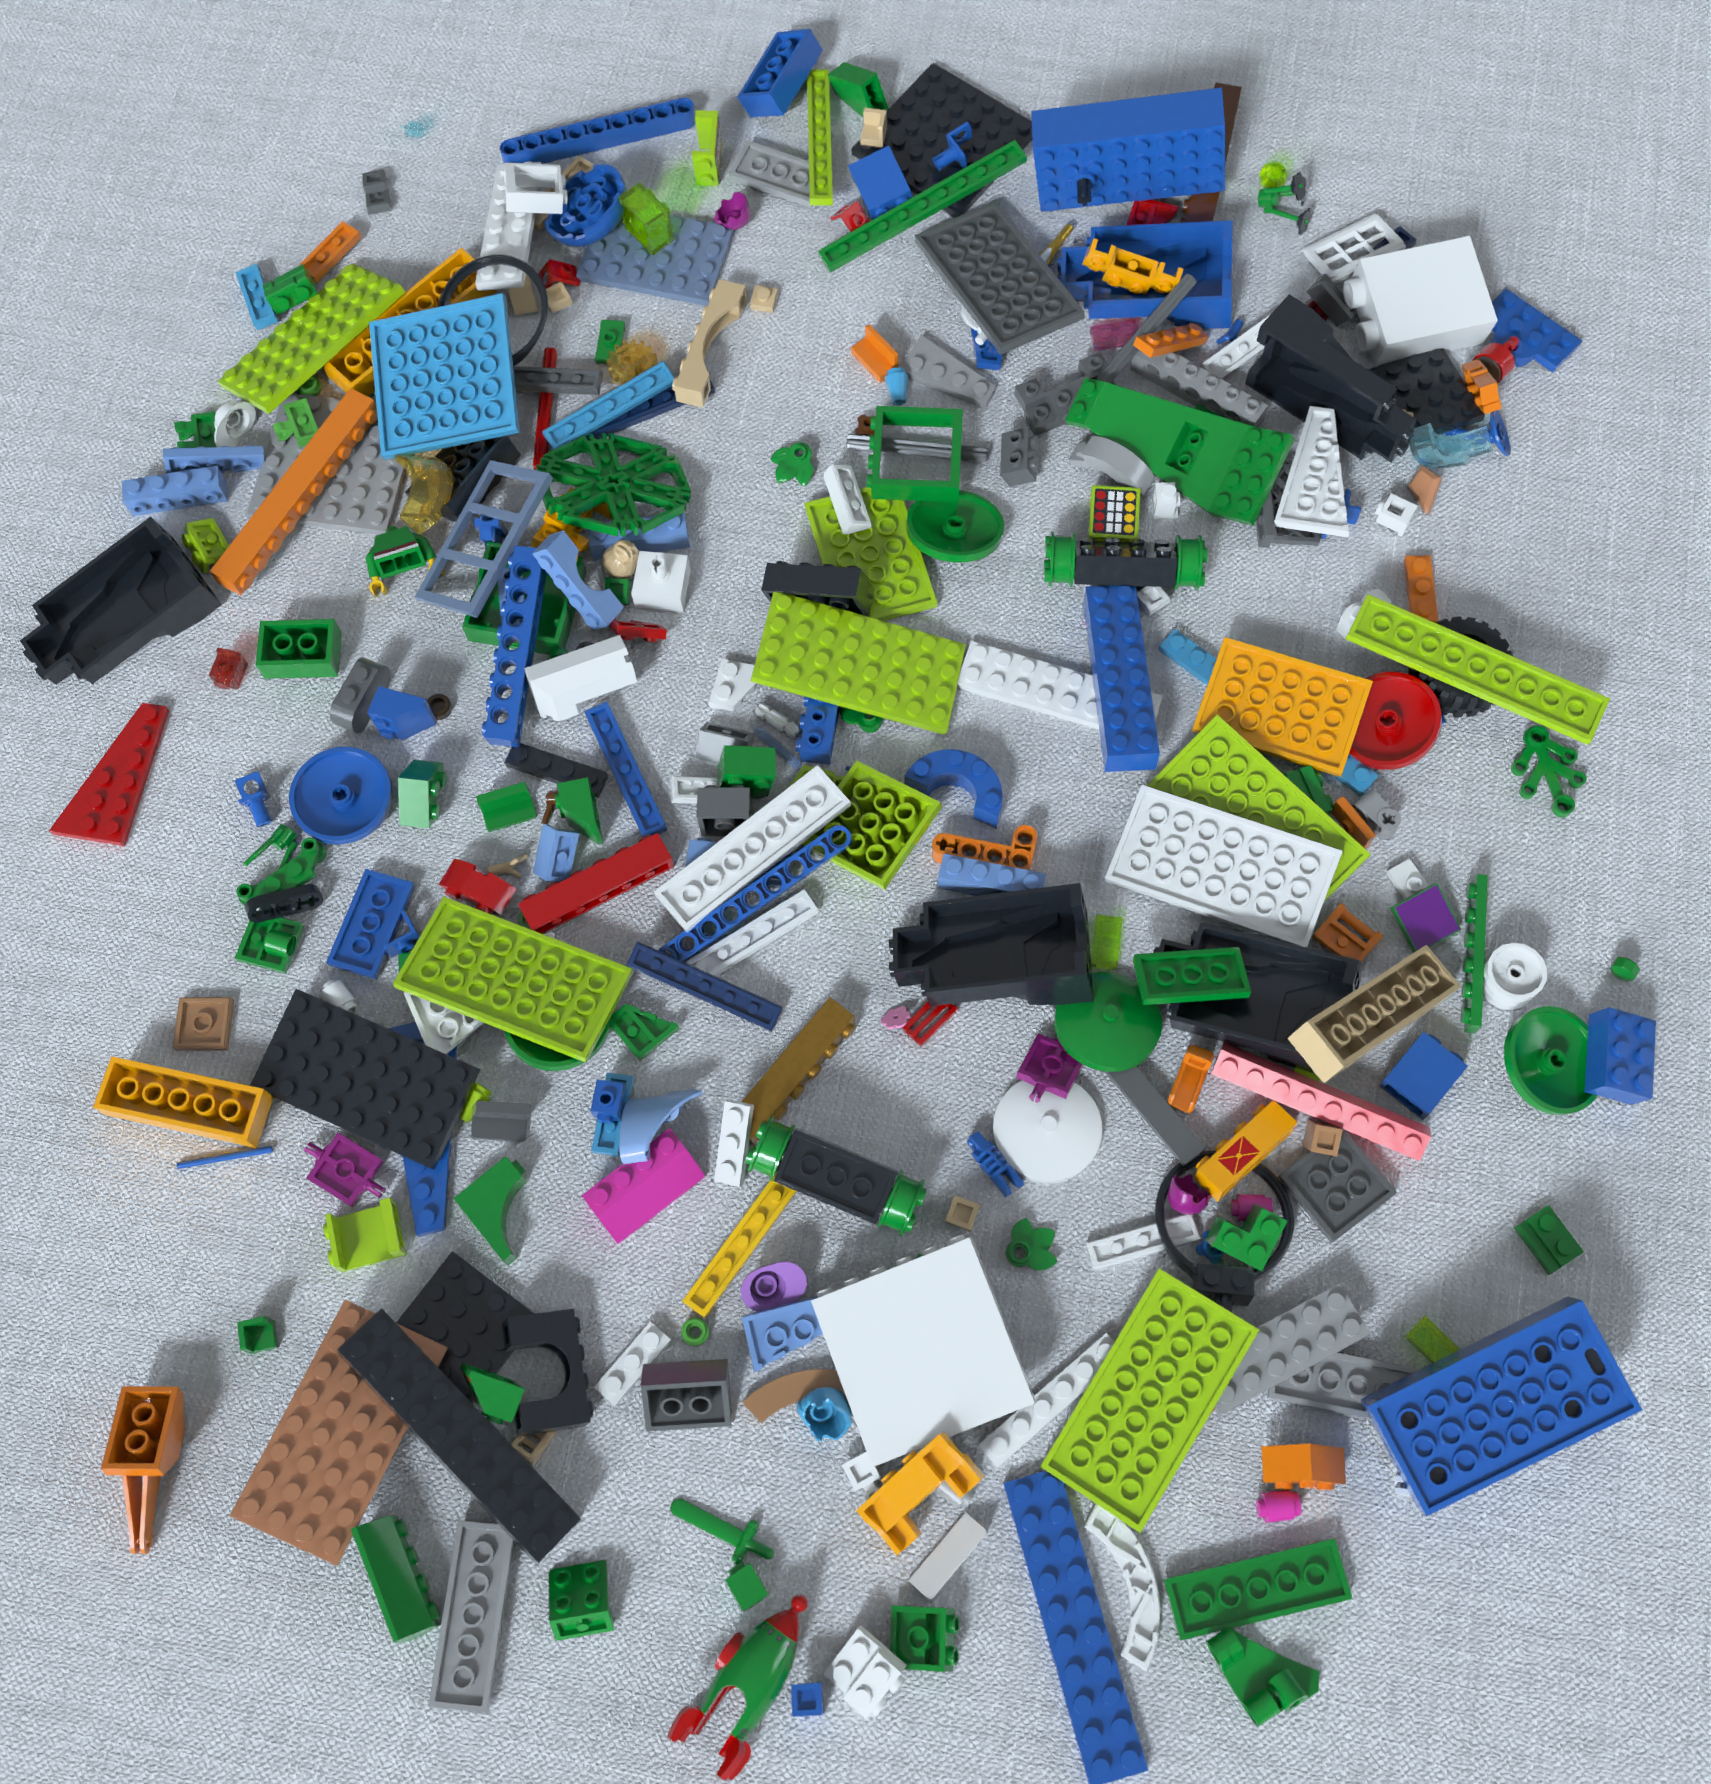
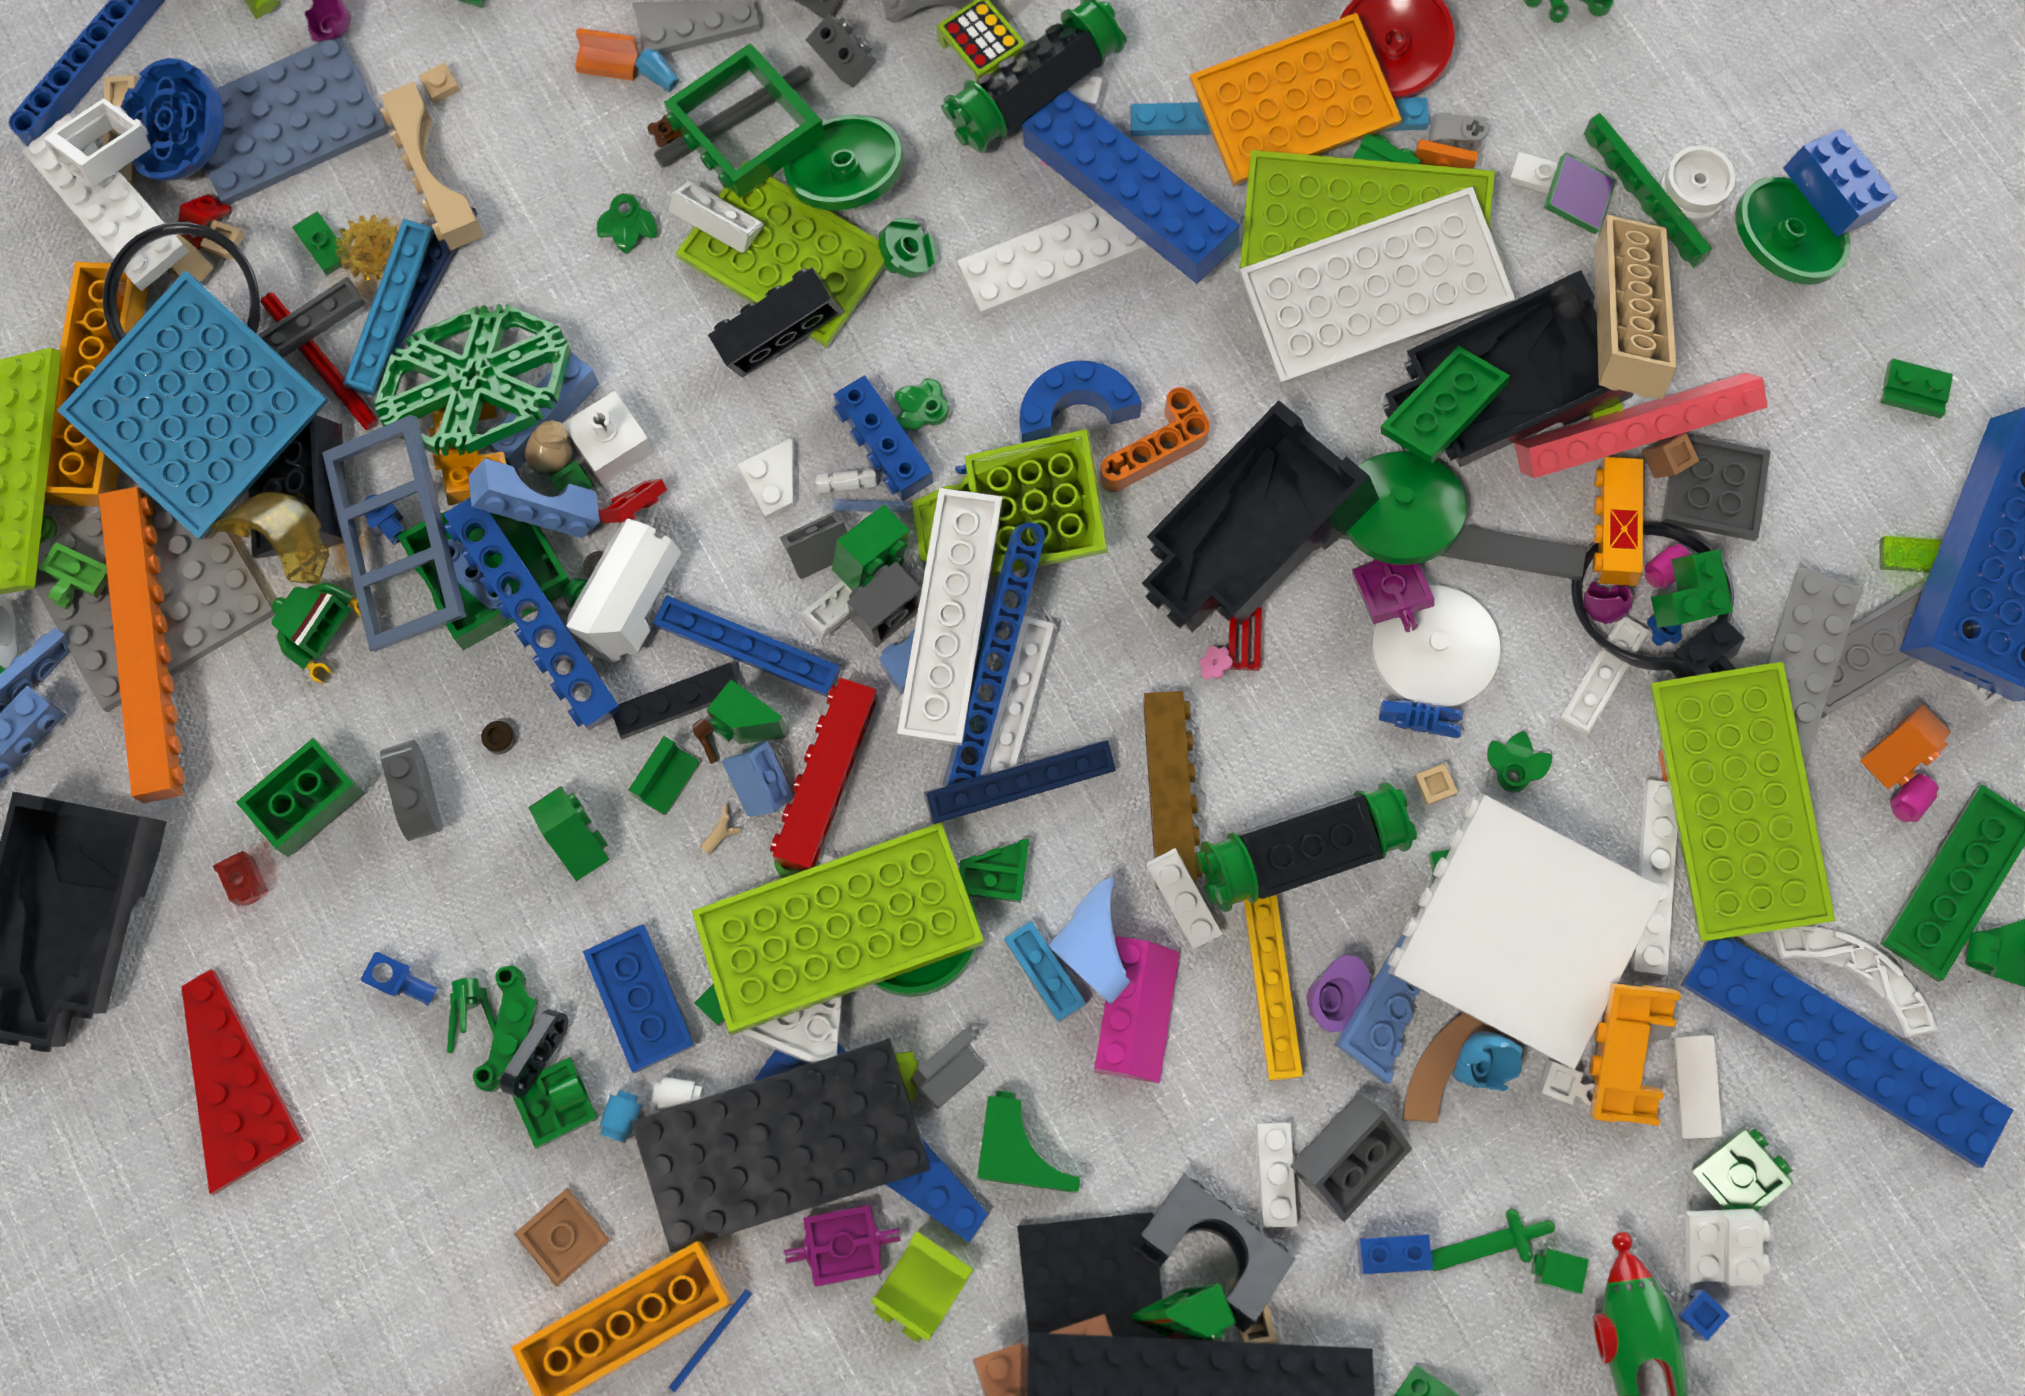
camera: 45 degrees left, 5 degrees up
(204, 542) = (88, 774): lime bracket -> none
(298, 978) = (618, 1116): none -> dark azure brick
(341, 795) = (488, 902): blue dish -> none
(400, 714) = (472, 774): blue slope -> none
(404, 943) = (693, 985): blue bracket -> none
(472, 885) = (704, 877): red brick -> none
(608, 1101) = (1036, 962): blue brick -> none
(646, 218) = (249, 87): clear neon green brick -> none
(653, 1477) = (1394, 1254): none -> blue brick
(689, 1325) = (1313, 1091): bright green plate -> none
(858, 662) = (876, 363): lime plate -> none
(932, 608) = (895, 255): none -> green plate
(985, 878) = (1179, 468): medium blue brick -> none
(1106, 942) = (1332, 434): clear neon green plate -> none
(1190, 1078) = (1516, 497): orange animal -> none
(1342, 941) = (1531, 271): orange plate -> none
(1423, 1075) = (1704, 331): blue brick -> none
(1624, 969) = (1774, 105): green tile -> none

